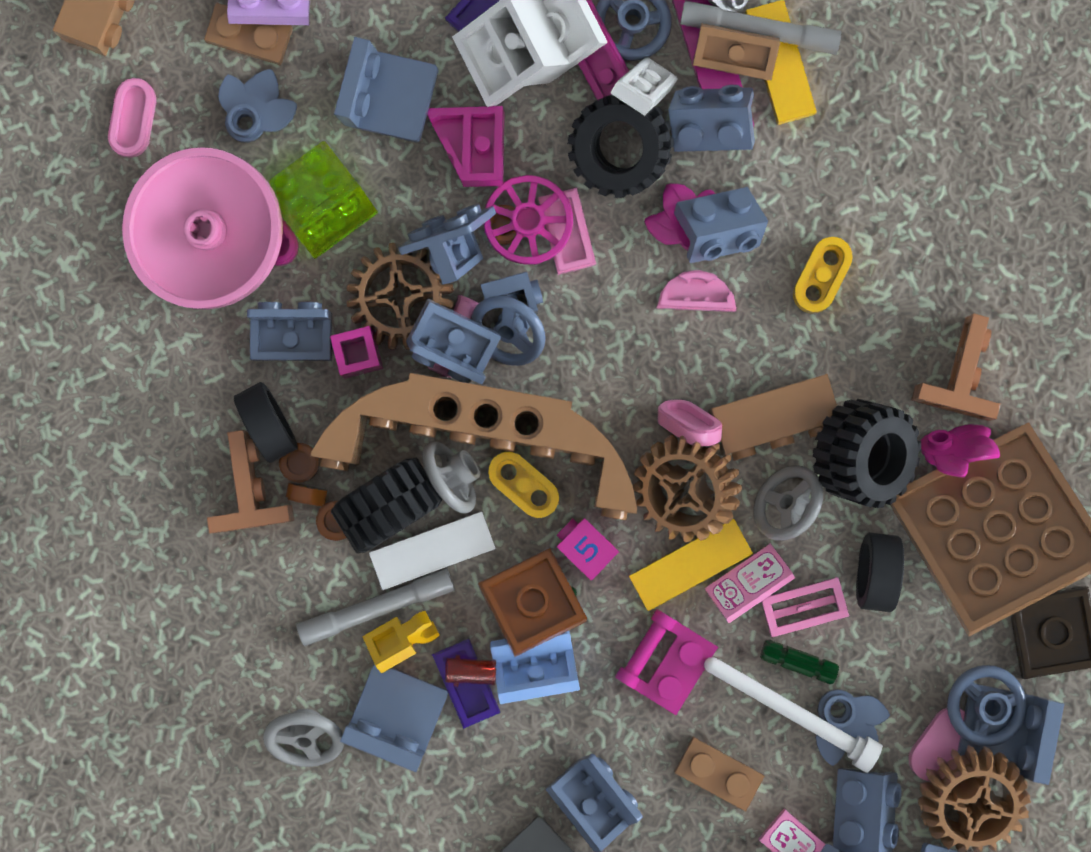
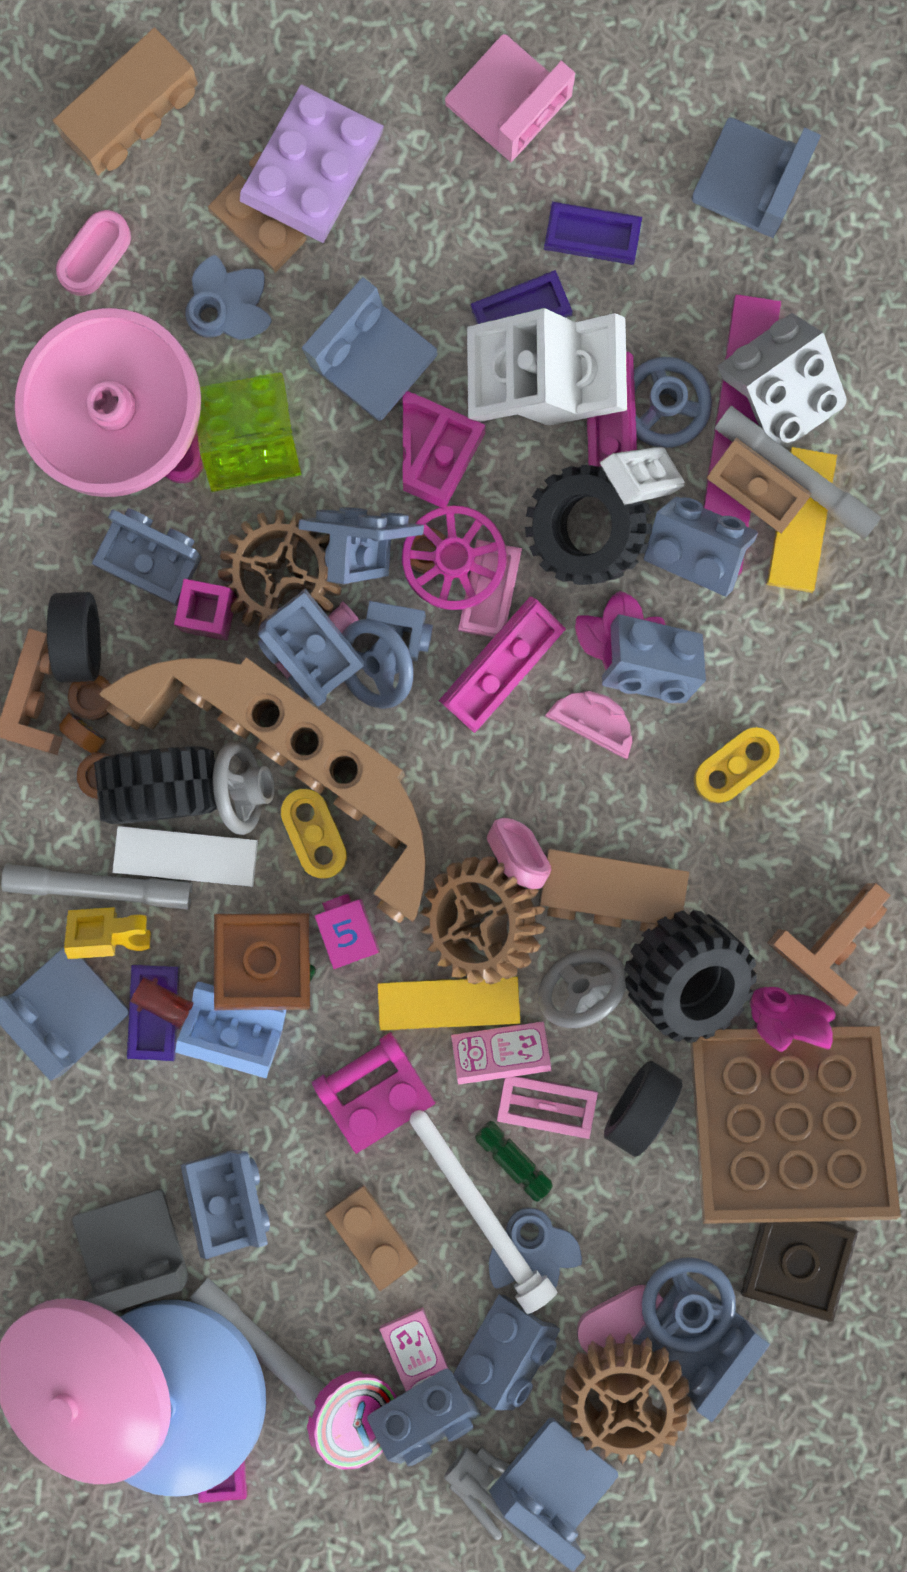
camera: 30 degrees right, 0 degrees up
(605, 284) = (502, 664): none -> dark pink tile

